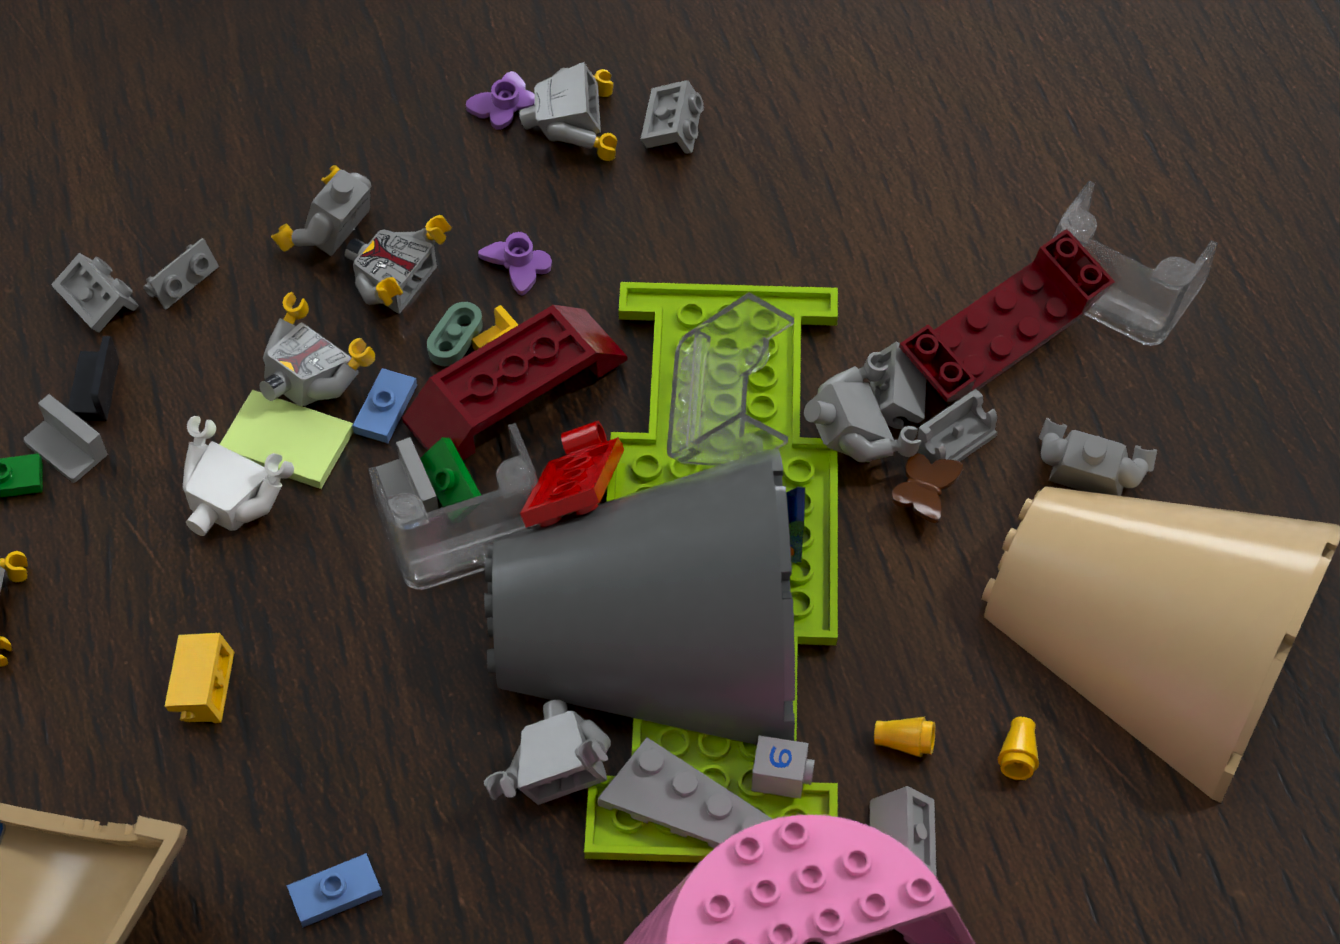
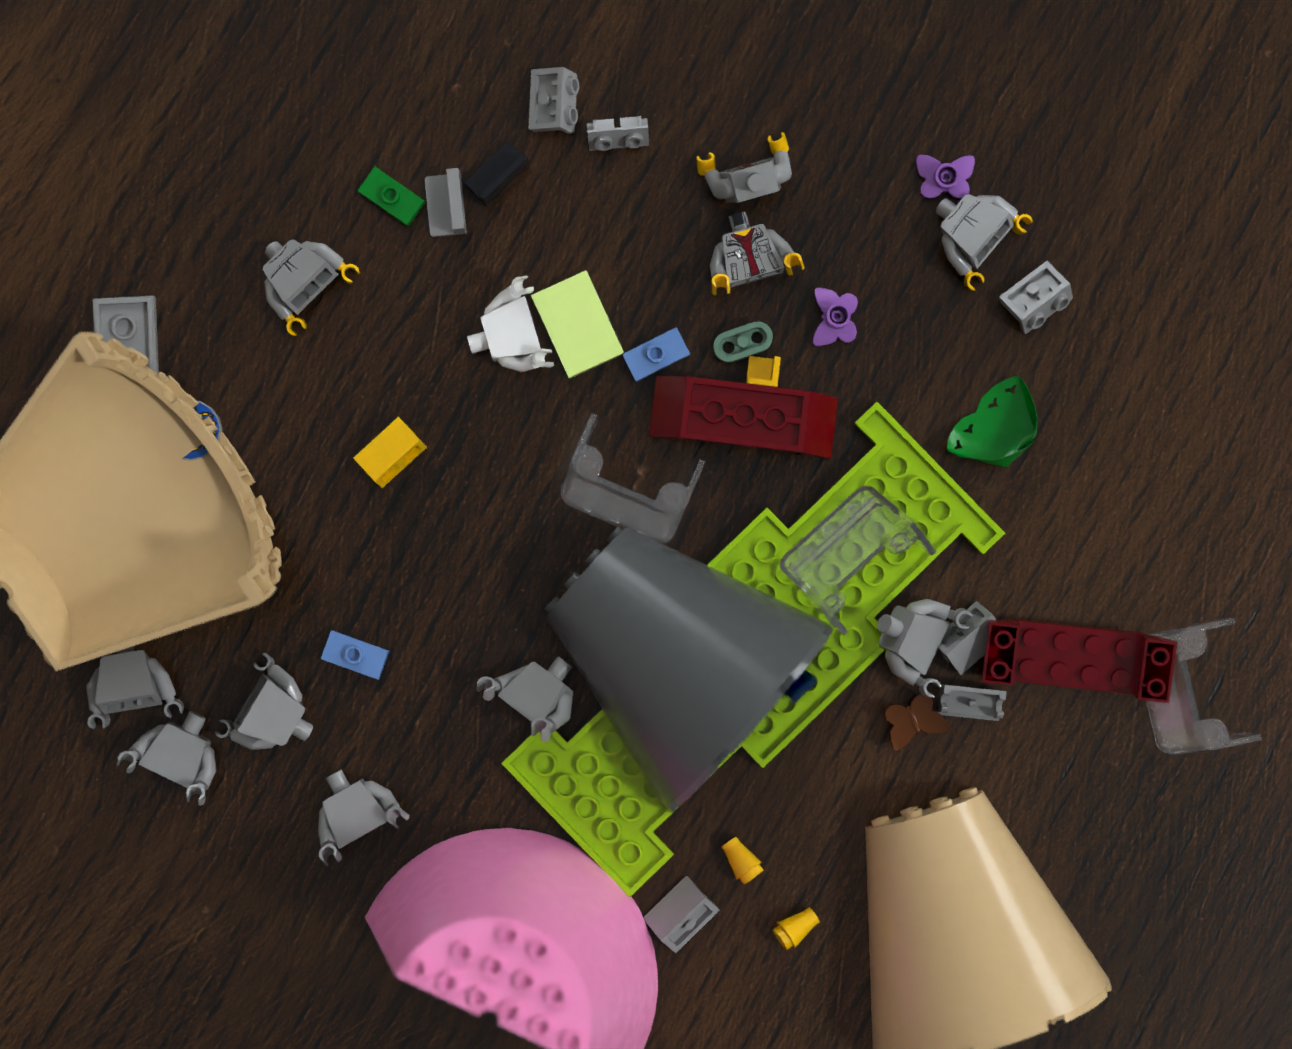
camera: 45 degrees right, 30 degrees up
(306, 364) = (629, 285): light grey torso -> none
(408, 476) = (615, 427): light grey panel -> none
(448, 473) = (643, 451): green plate -> none
(574, 480) = (691, 540): red hinge -> none
(677, 796) = (579, 787): light grey wing -> none
(752, 224) = (997, 432): none -> green piece
(781, 767) = (647, 823): light grey brick -> none
(1092, 461) = (1022, 802): light grey torso -> none

